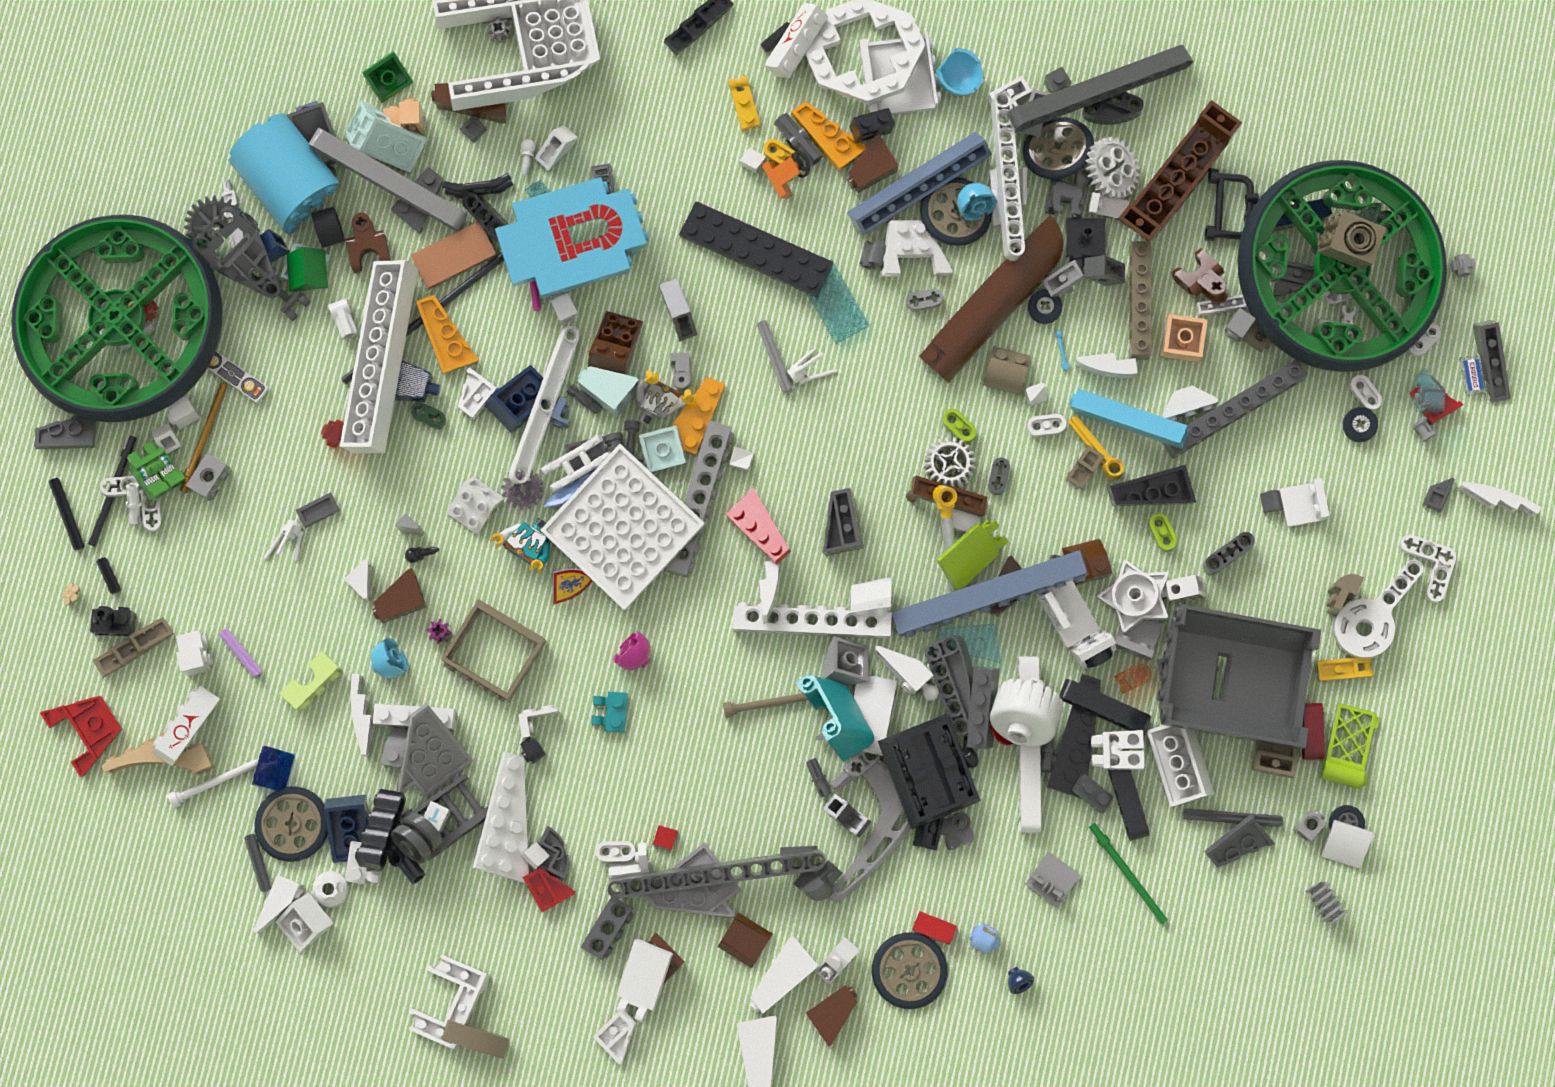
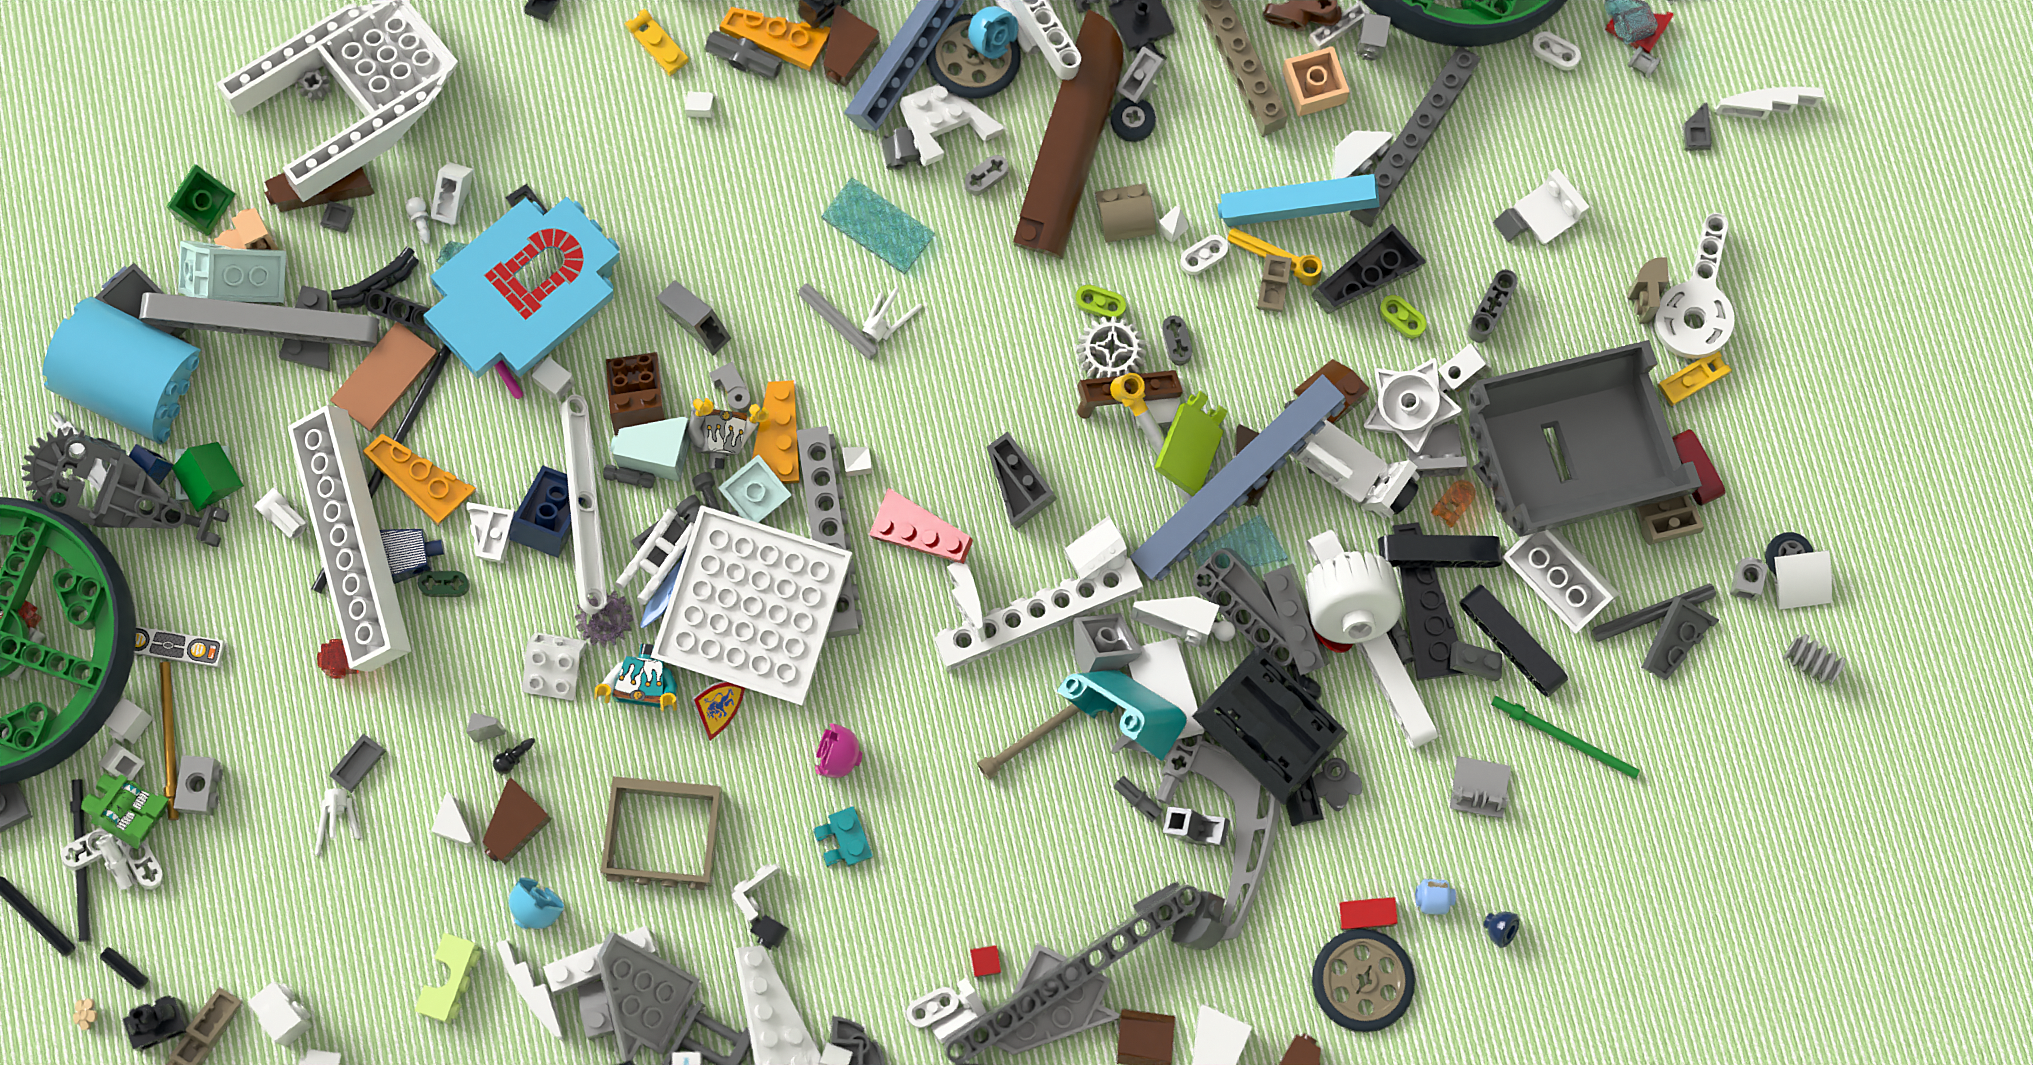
camera: 30 degrees left, 5 degrees down
(240, 652) = (340, 985): lavender axle -> none
(328, 226) = (210, 411): black piece -> none
(365, 241) = (265, 409): reddish brown piece -> none
(435, 627) = (589, 842): magenta gear -> none
(560, 410) = (607, 510): sand blue bracket -> none
(756, 249) = (755, 204): black plate -> none
(782, 153) = (731, 81): yellow plate -> none
(785, 172) = (749, 96): orange piece -> none
(837, 960) = (1270, 1010): white slope -> none
(1065, 366) = (1191, 176): medium azure hinge -> none
(1104, 270) = (1184, 44): dark grey brick -> none
(1108, 366) = (1242, 153): white slope -> none
(1113, 752) = (1476, 598): white hips -> none
(1250, 338) = (1396, 50): dark tan brick -> none
(1345, 771) = (1755, 496): lime piece -> none
(1359, 434) = (1562, 79): black bush -> none
(1439, 563) = (1739, 208): white beam -> none

